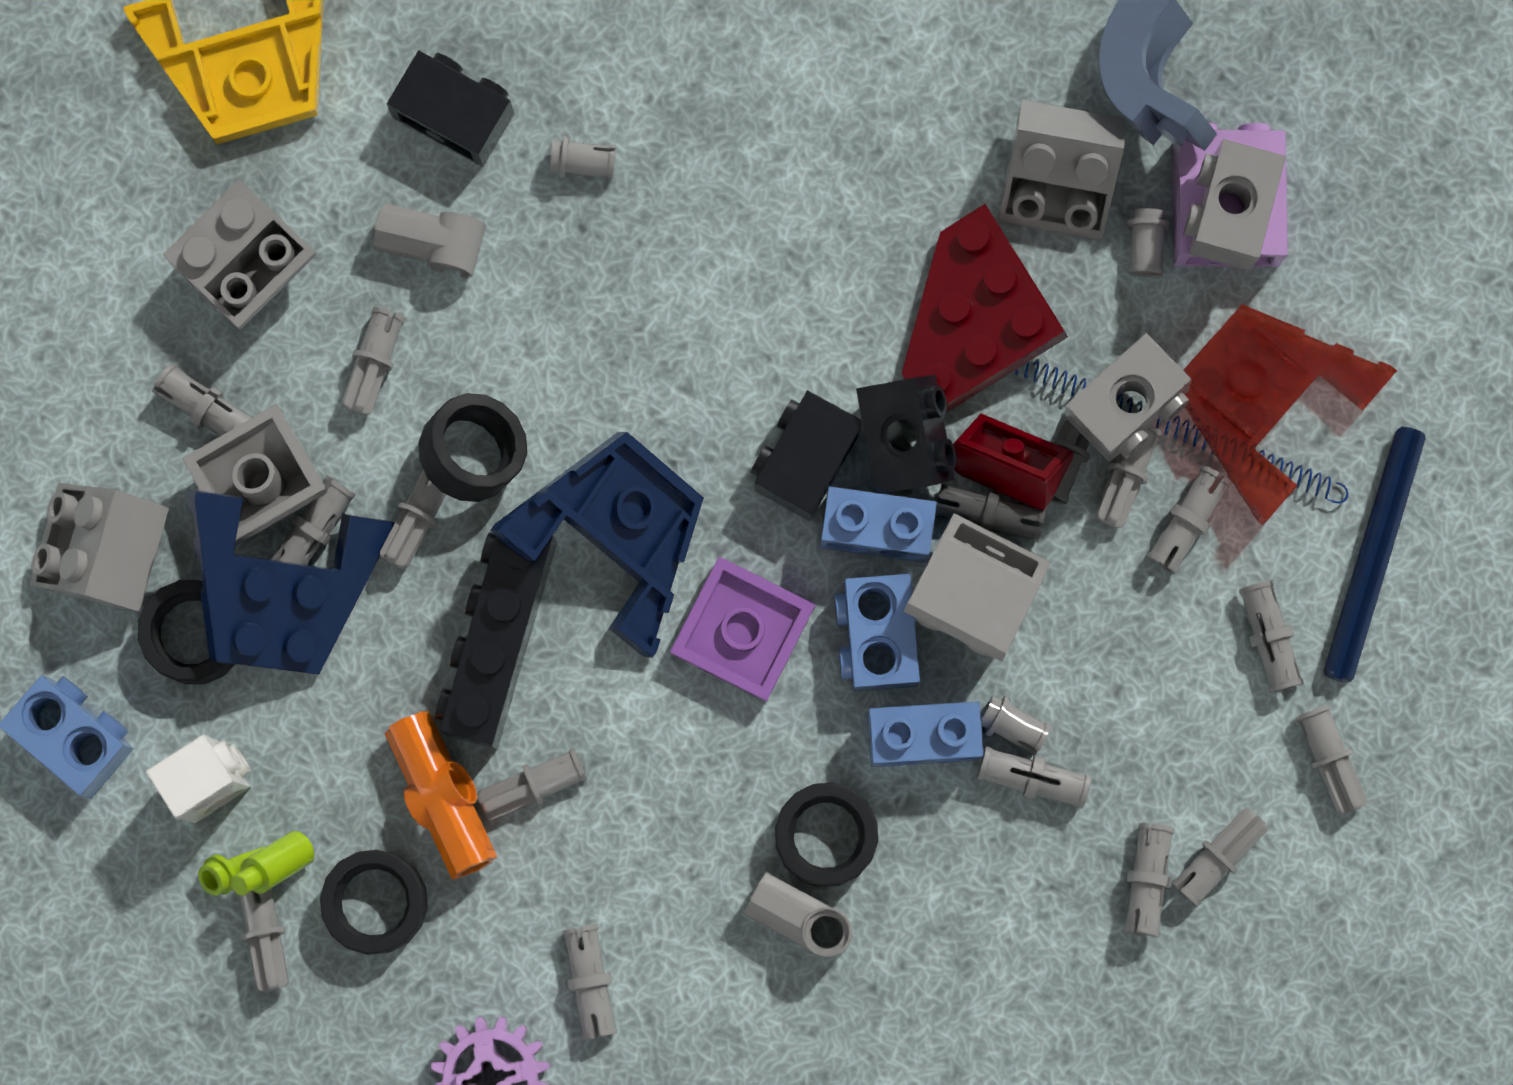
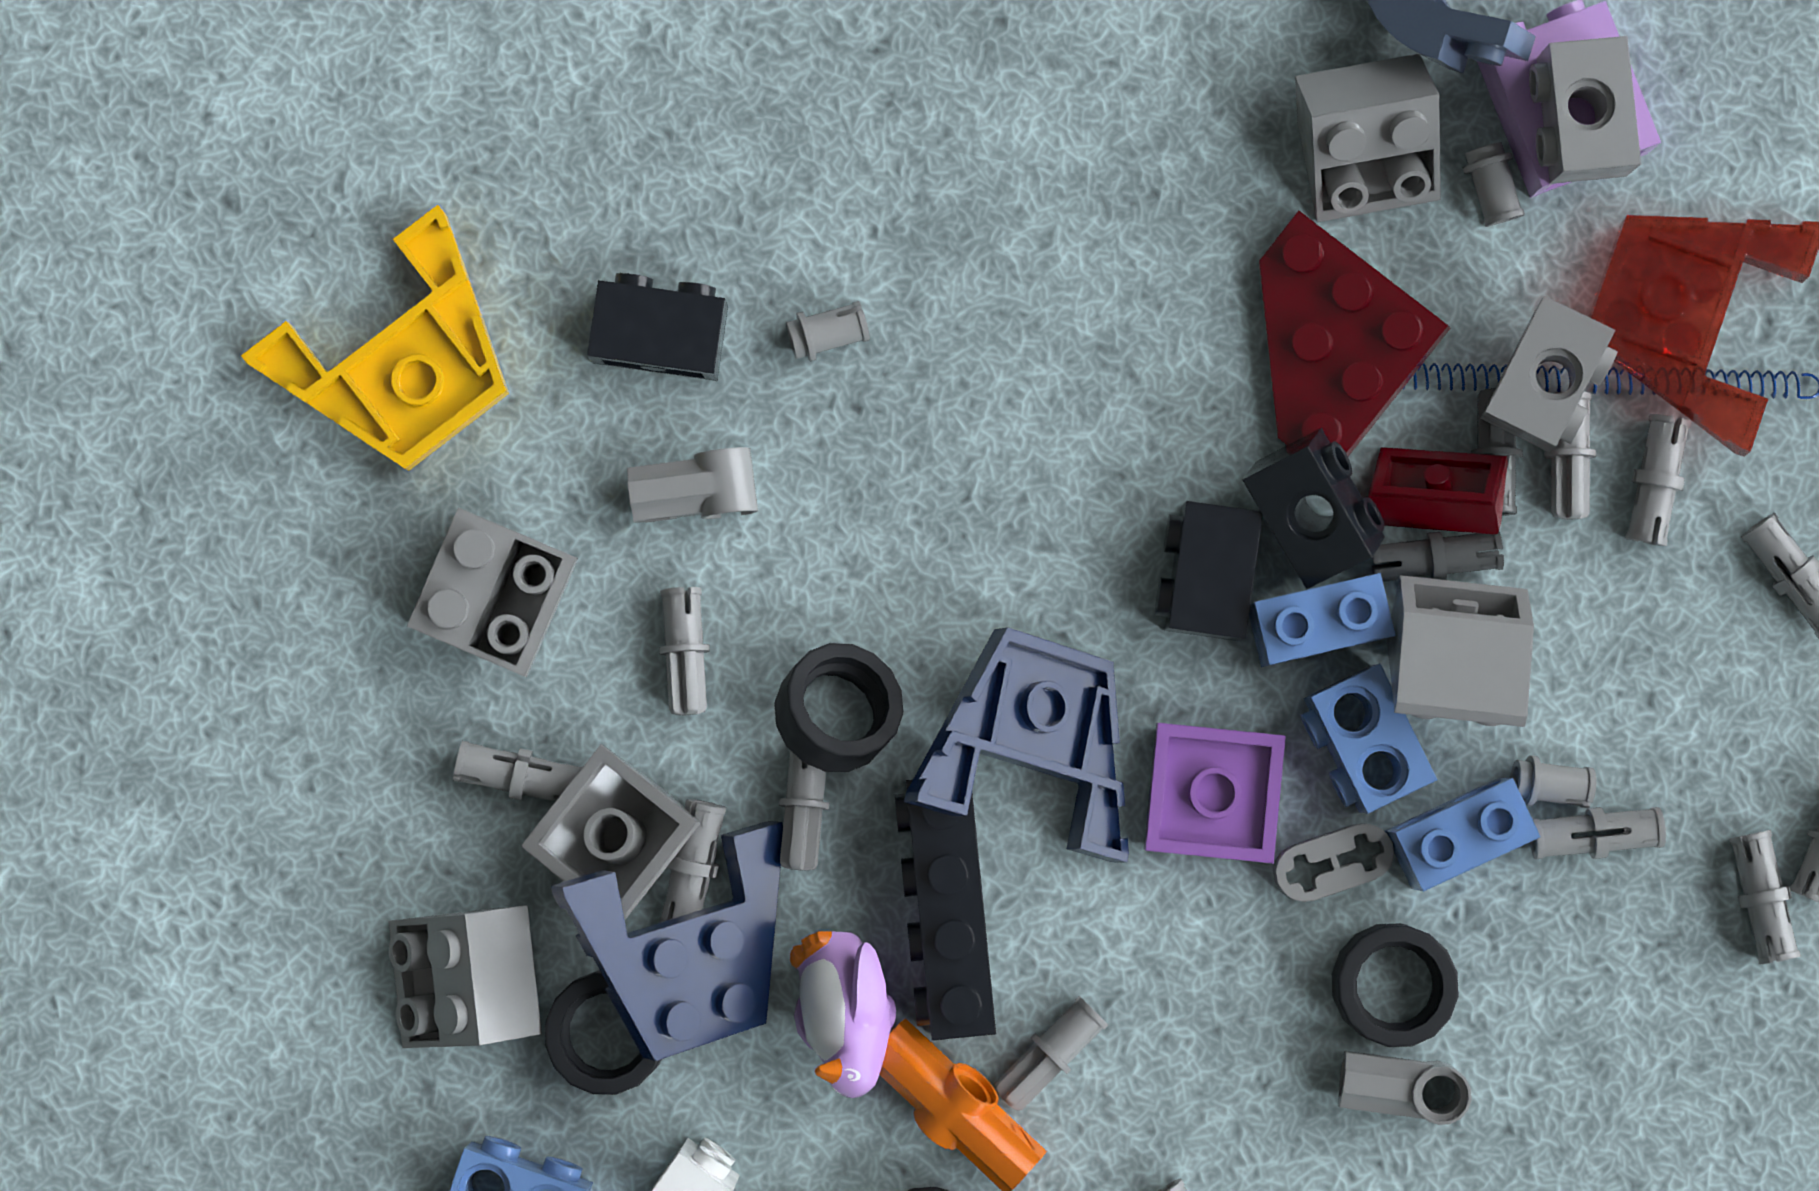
camera: 20 degrees left, 5 degrees up
(381, 680) = (843, 1009): none -> lavender animal
(817, 707) = (1337, 877): none -> light grey beam

